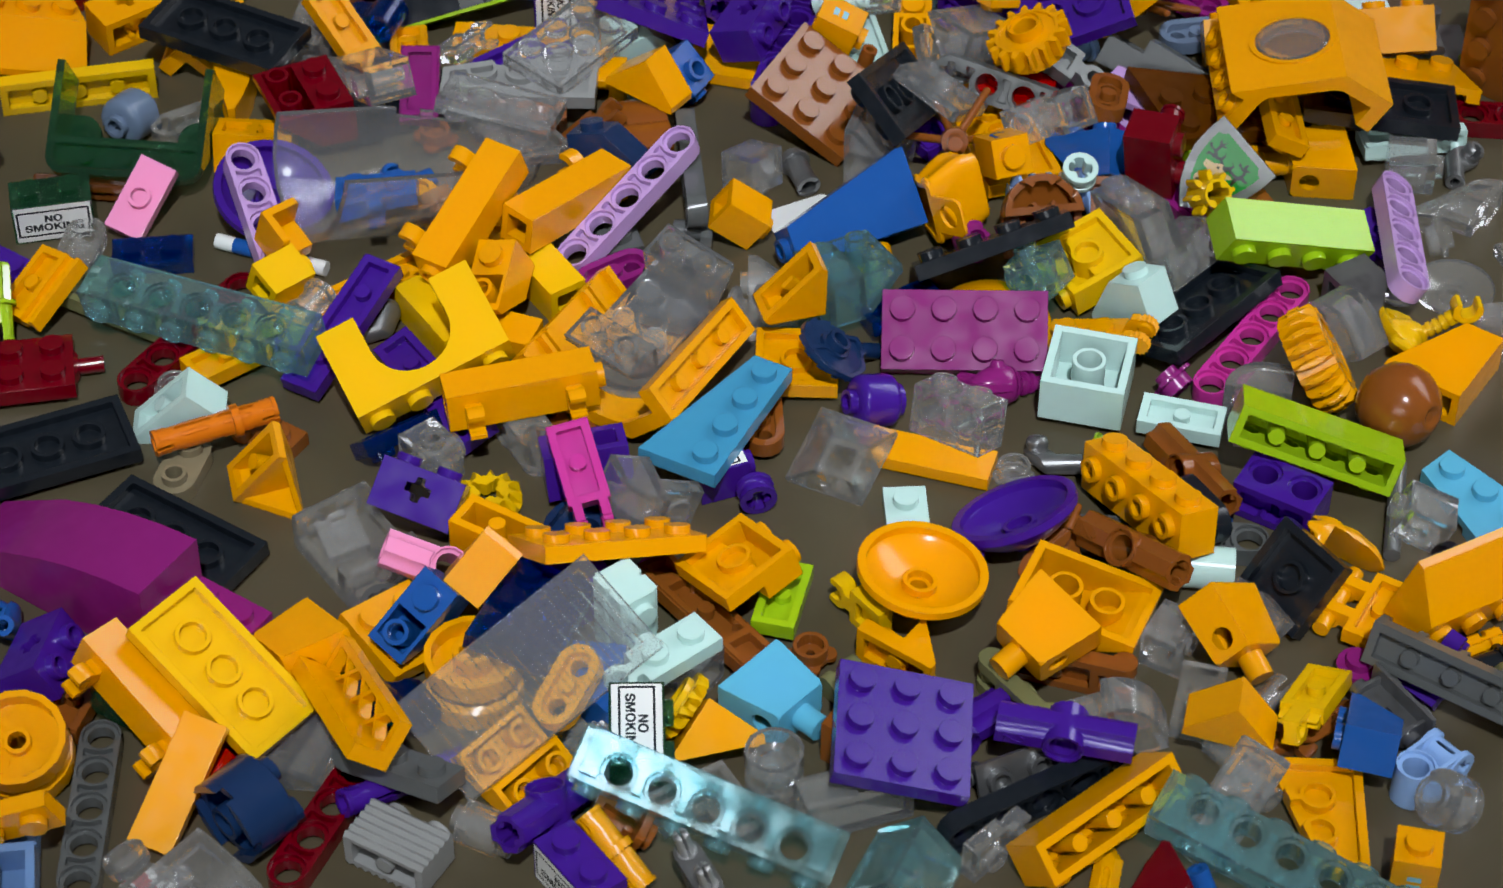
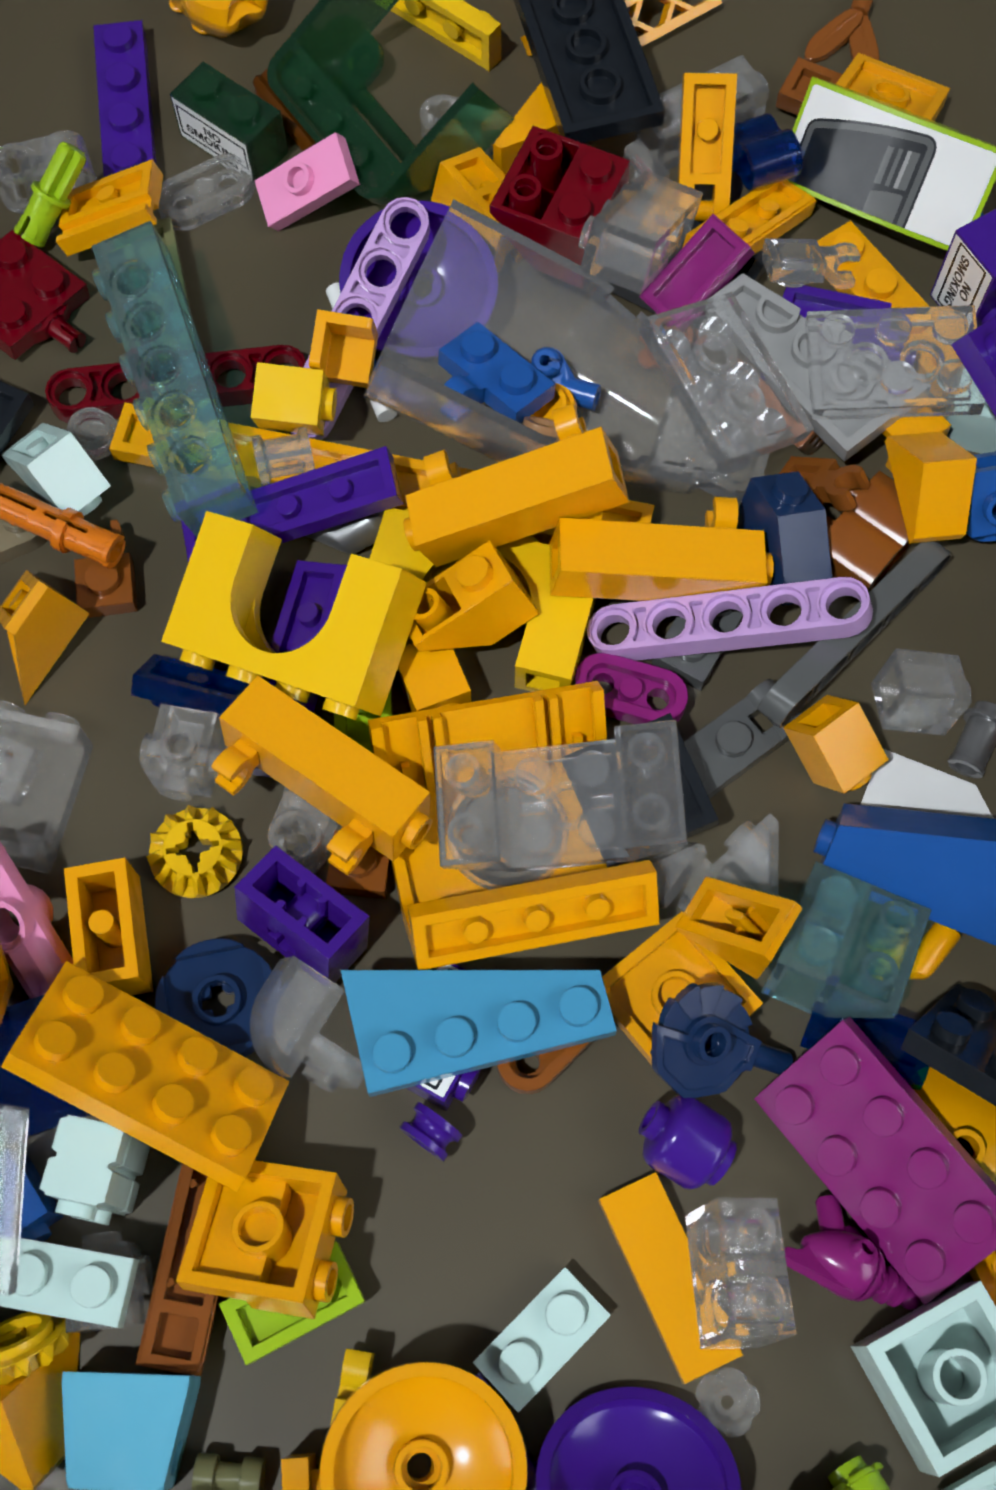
camera: 50 degrees right, 25 degrees up
(129, 114) = (419, 72): sand blue head -> none
(165, 253) = (263, 255): clear blue plate -> none
(393, 495) = (101, 794): dark purple brick -> none
(579, 468) = (238, 950): dark pink hinge -> none
(813, 651) = (222, 1419): dark orange plate -> none
(841, 456) = (560, 1184): clear slope -> none
(1048, 461) = (787, 1426): flat silver arm -> none

